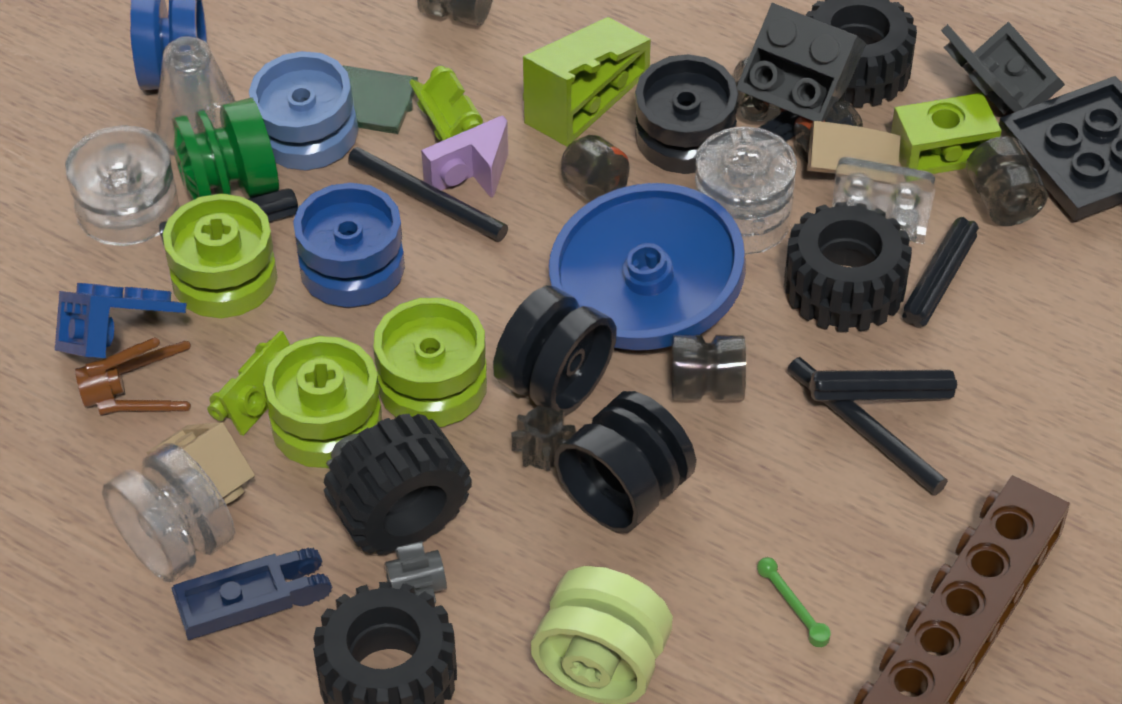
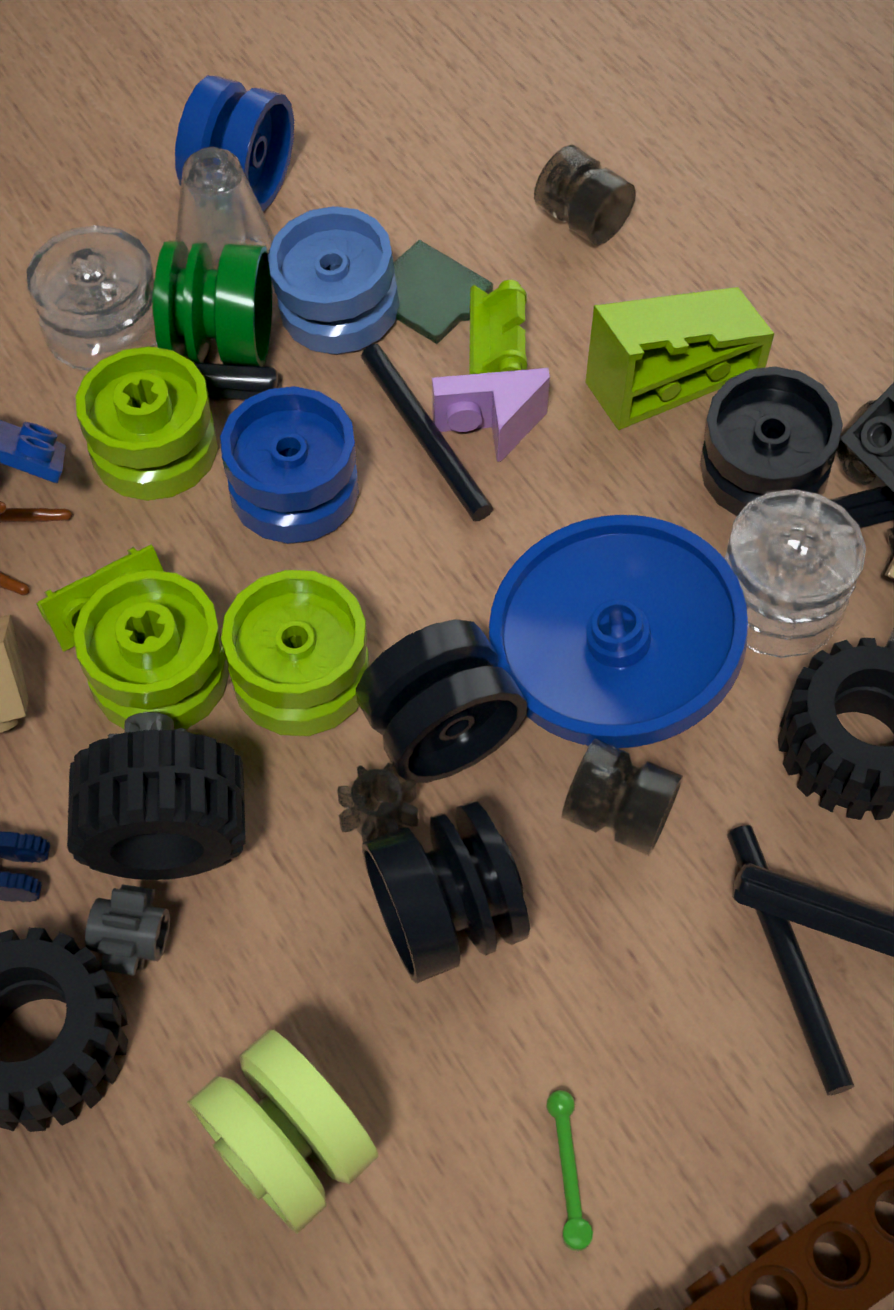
camera: 25 degrees right, 10 degrees up
(594, 166) = (627, 471): clear smoke head -> none

